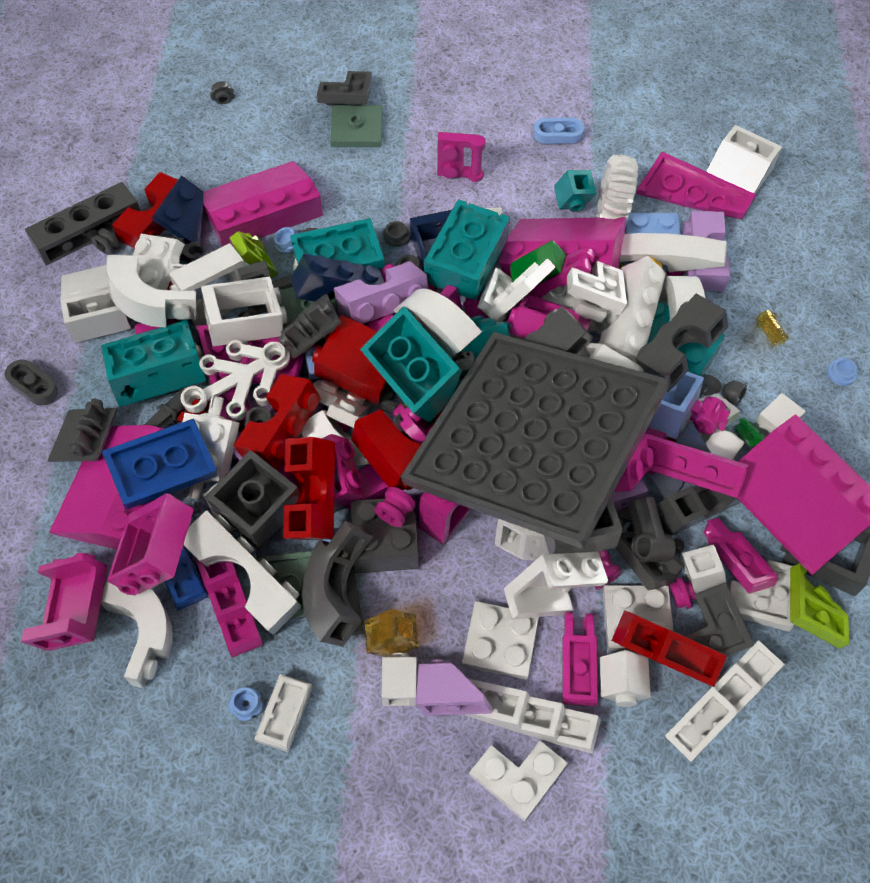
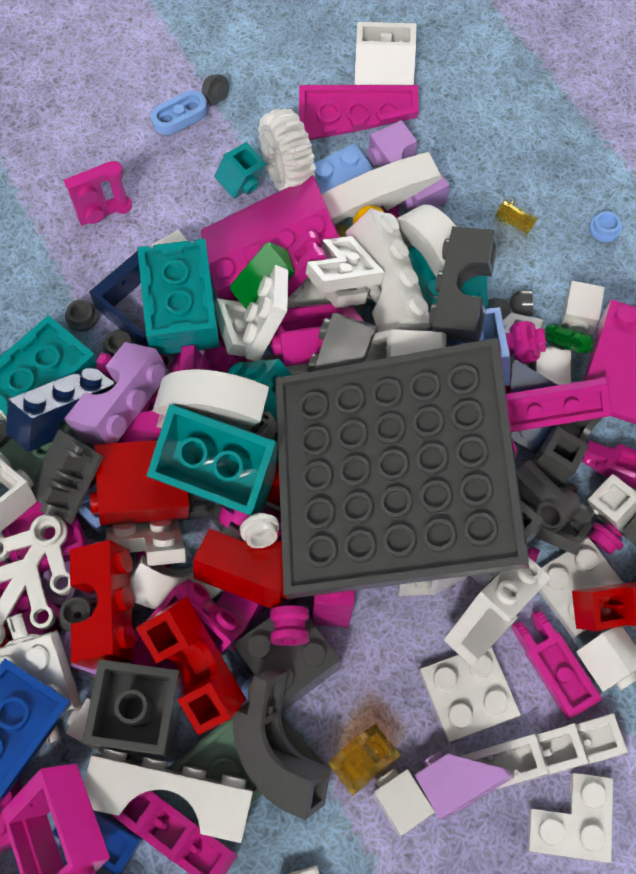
camera: 30 degrees left, 5 degrees up
(413, 426) = (260, 530): none -> white plate
(596, 126) = (215, 88): none -> dark grey plate

